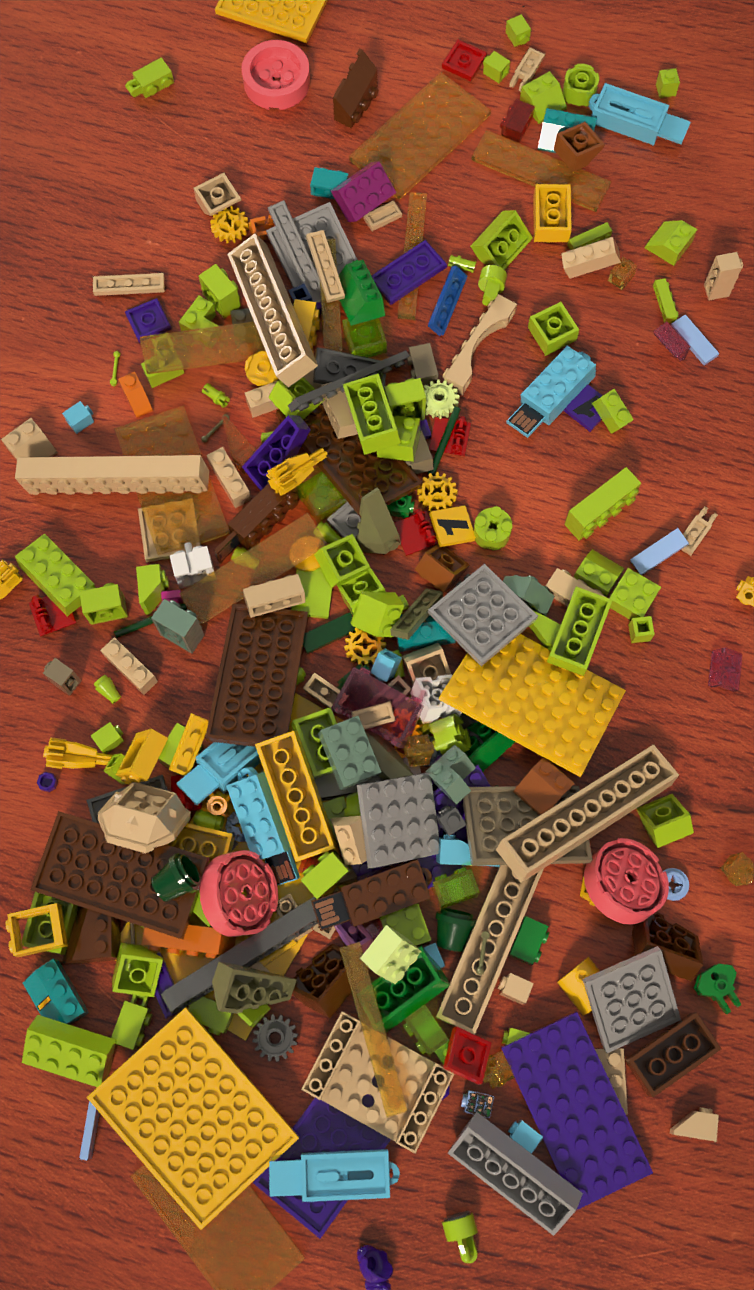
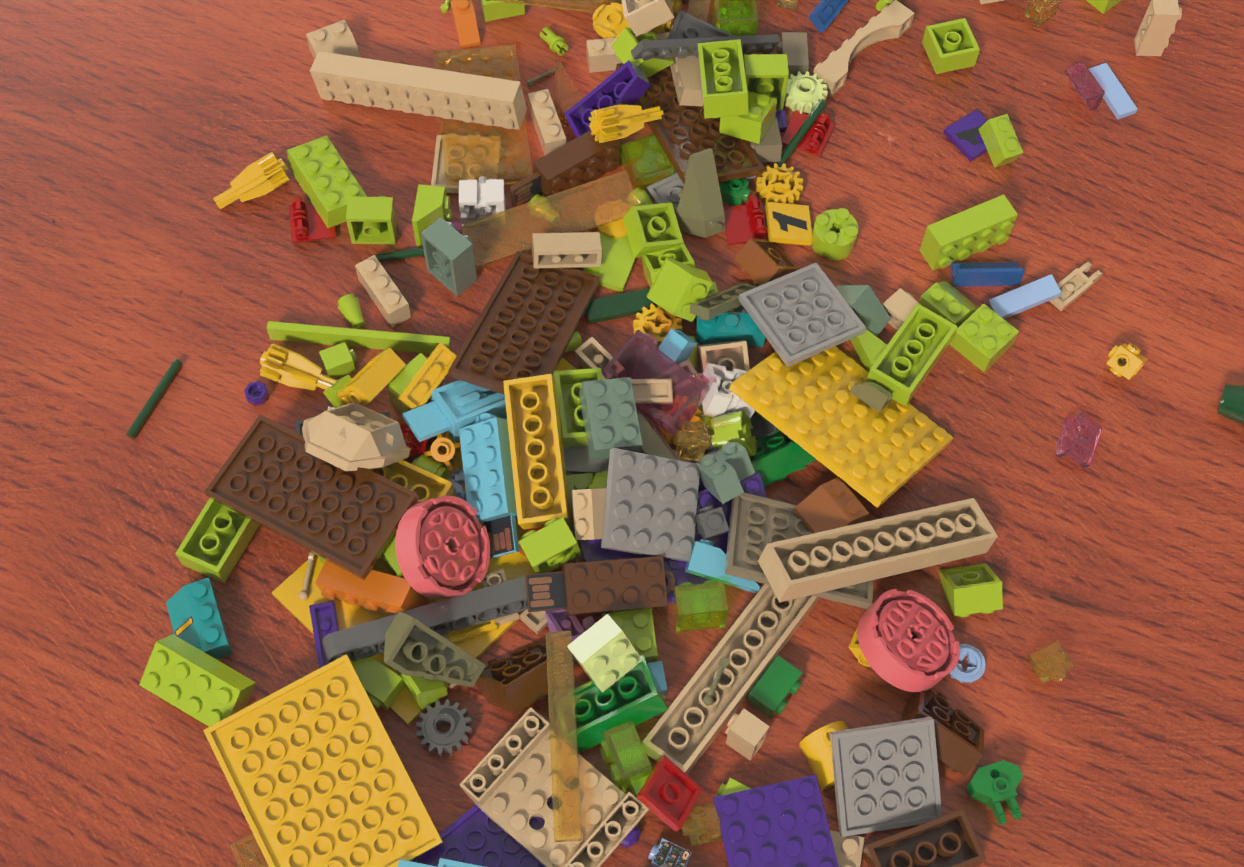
camera: 10 degrees right, 10 degrees down
(58, 928) = (179, 518): yellow window -> none
(61, 676) = (304, 284): dark tan brick -> none
(78, 417) = (397, 32): medium azure brick -> none
(89, 1133) = (197, 782): light blue tile -> none
(93, 938) = (263, 567): reddish brown wedge -> none
(120, 713) = (355, 337): none -> lime tile
(132, 1023) = (281, 667): lime brick -> none
(136, 970) = (301, 612): lime slope -> none
(176, 878) = (374, 504): dark green piece -> none
(453, 928) = (687, 650): dark green piece -> none
(553, 390) = (936, 107): medium azure piece -> none
(555, 673) = (872, 394): none -> olive brick
(623, 535) = (986, 274): none -> blue panel
(641, 629) = (985, 374): lime brick -> none
(665, 301) = (1085, 44): lime piece -> none

